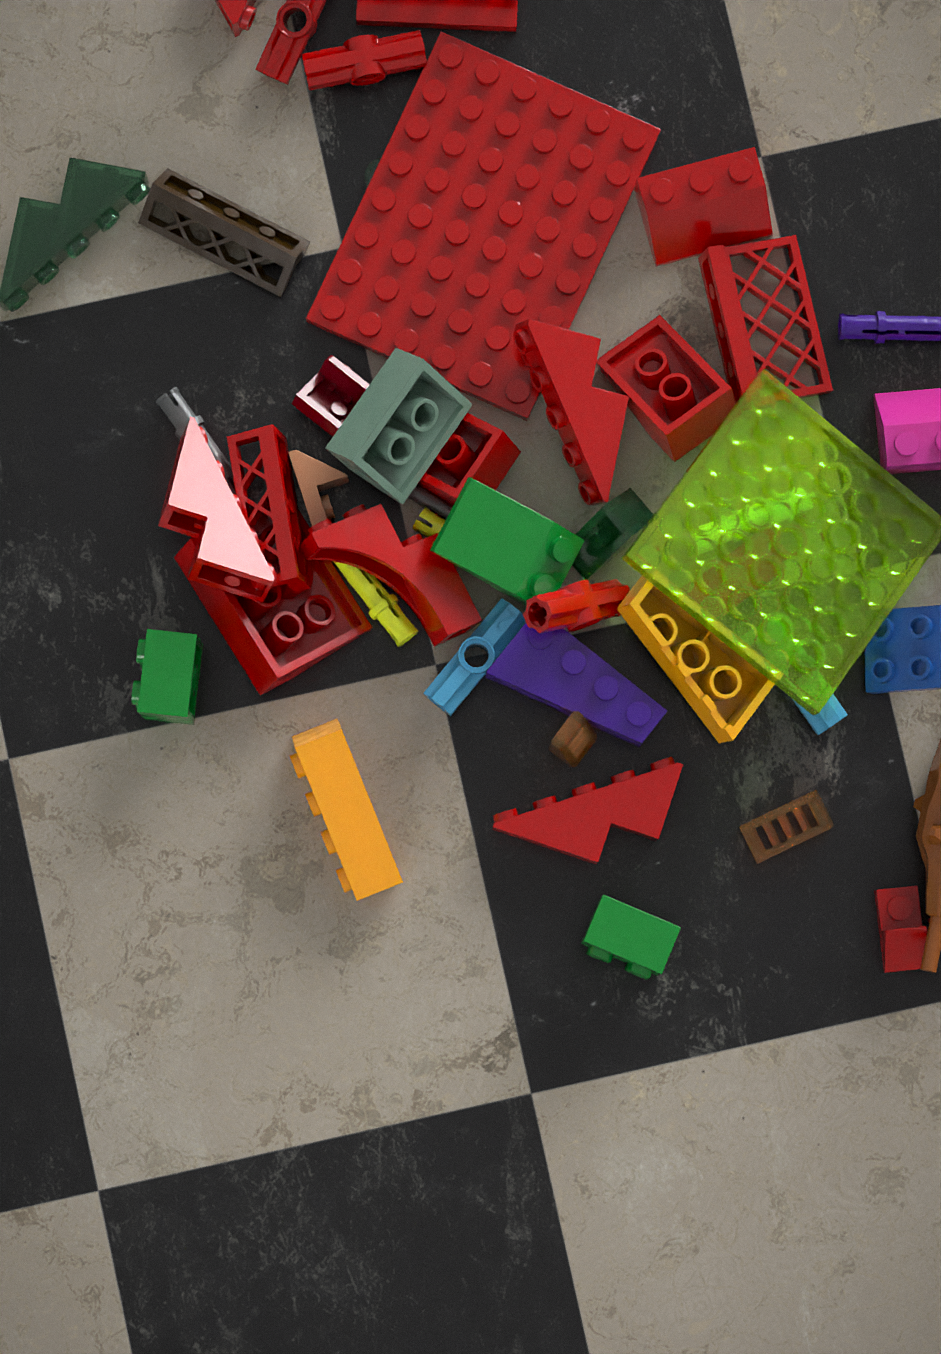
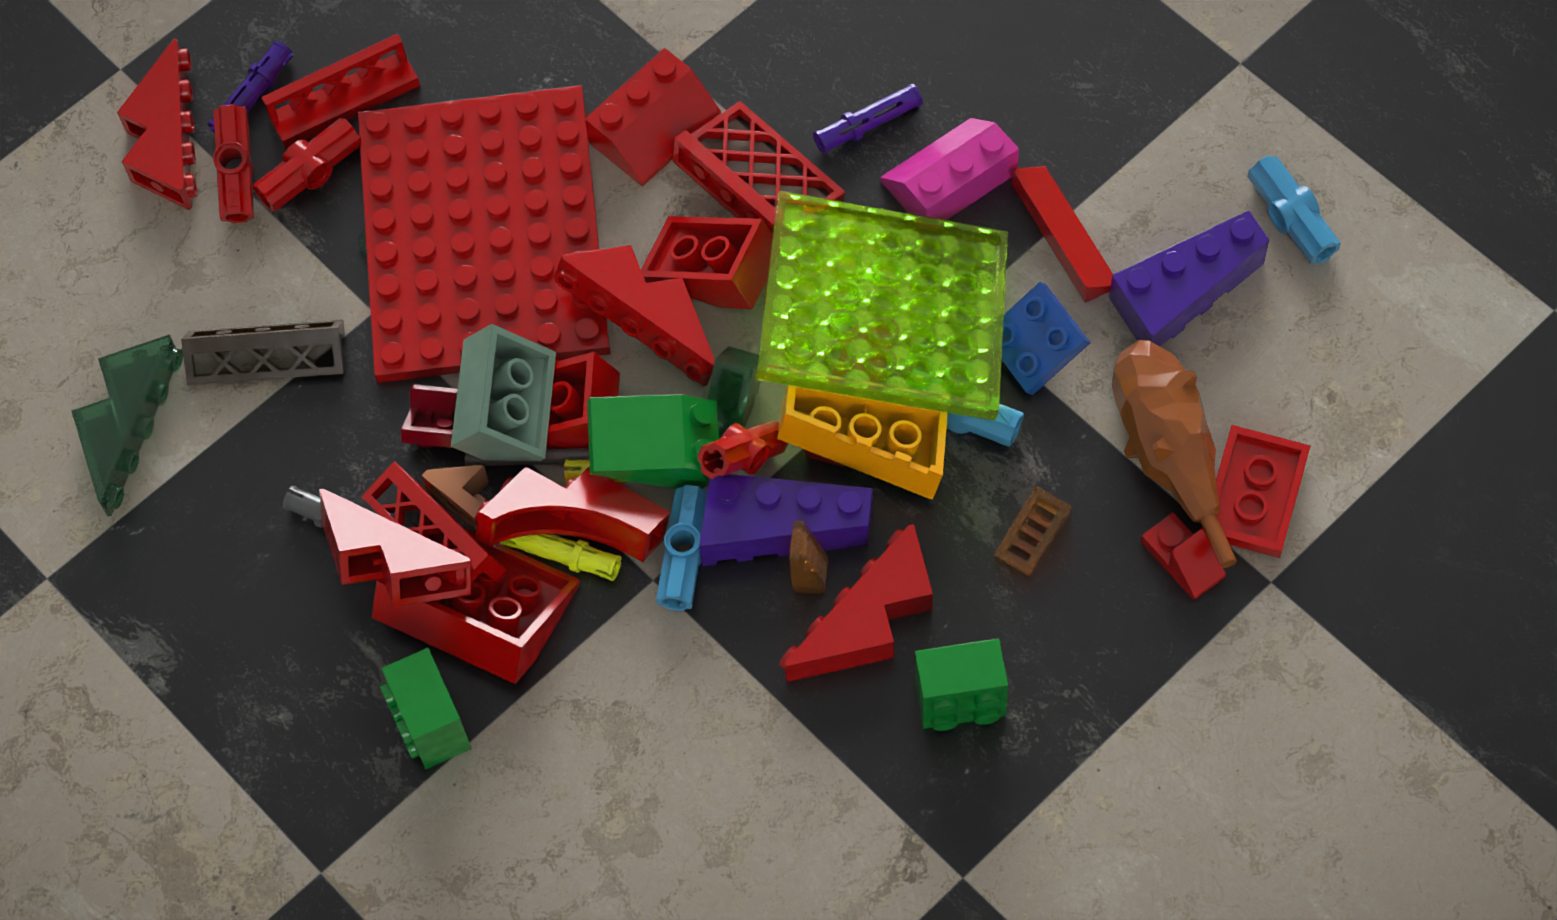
camera: 25 degrees left, 20 degrees down
(346, 809) = (648, 729): light orange wedge -> none

